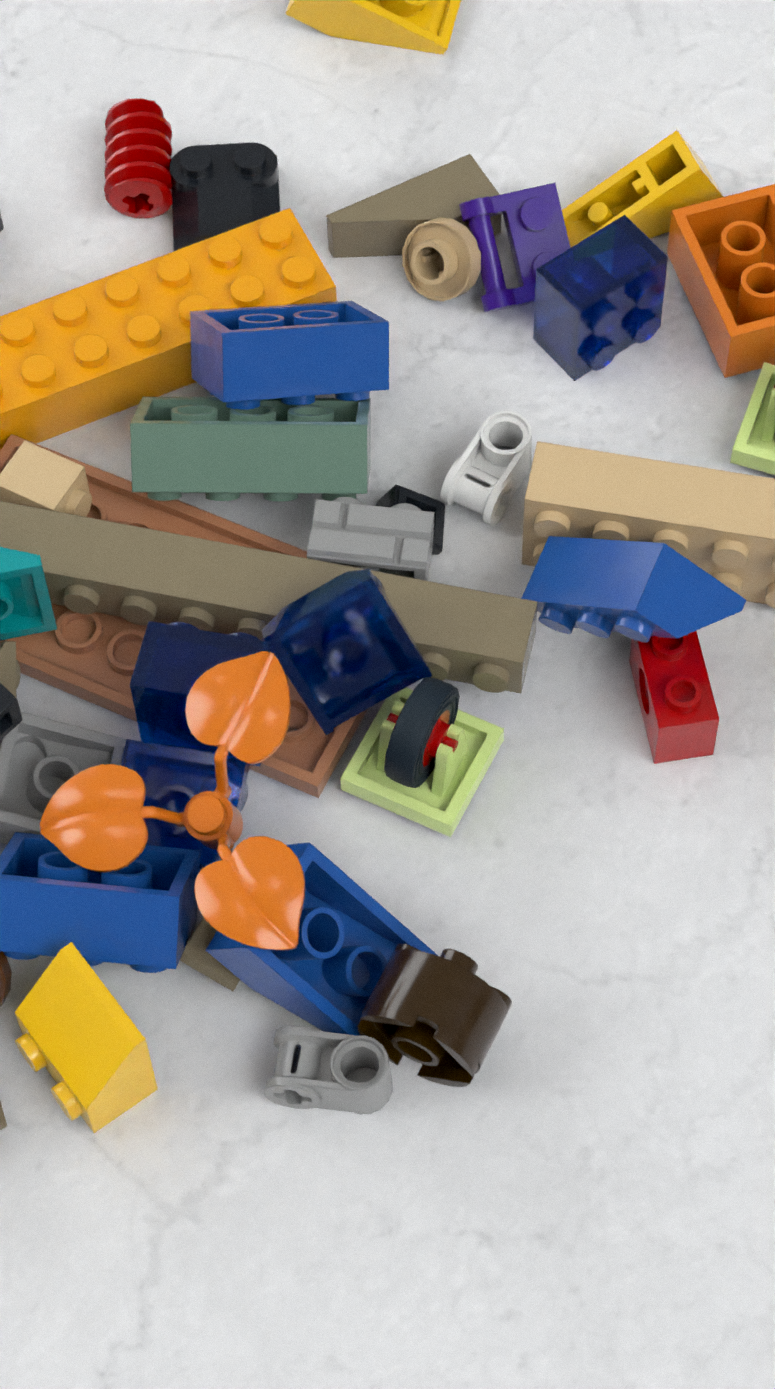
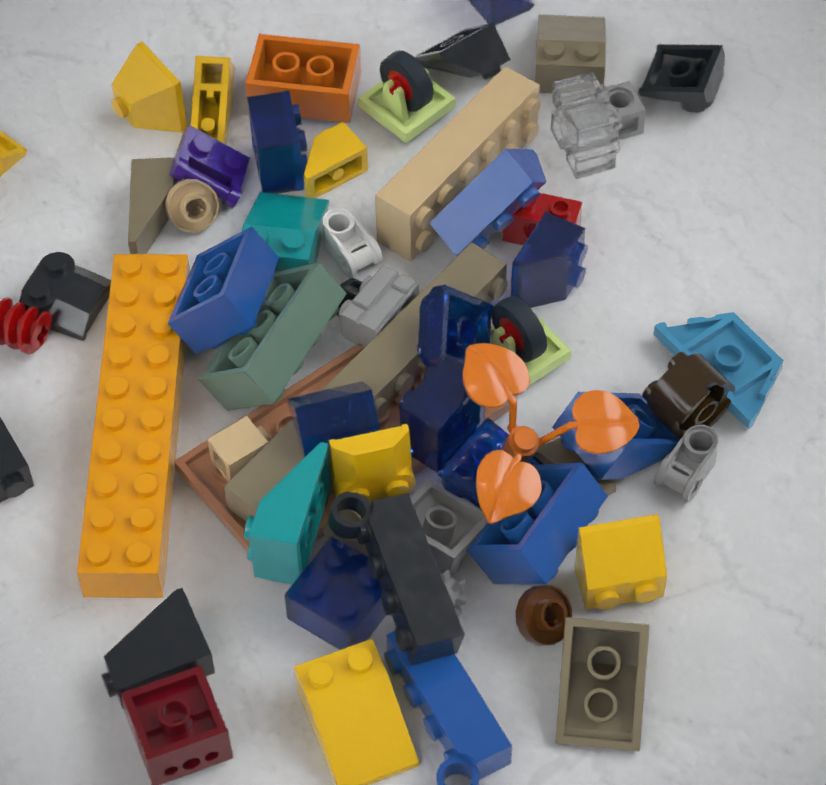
camera: 65 degrees left, 5 degrees down
(75, 653) = (373, 463): none -> yellow slope
(114, 565) = (333, 414): none -> clear blue slope
(455, 378) = (289, 227): none -> teal slope
(555, 1053) = (733, 351): none -> dark azure wing
(575, 722) = (549, 262): none -> clear blue slope
(604, 117) = (148, 93): none -> yellow slope
(627, 383) = (334, 160): none -> yellow slope

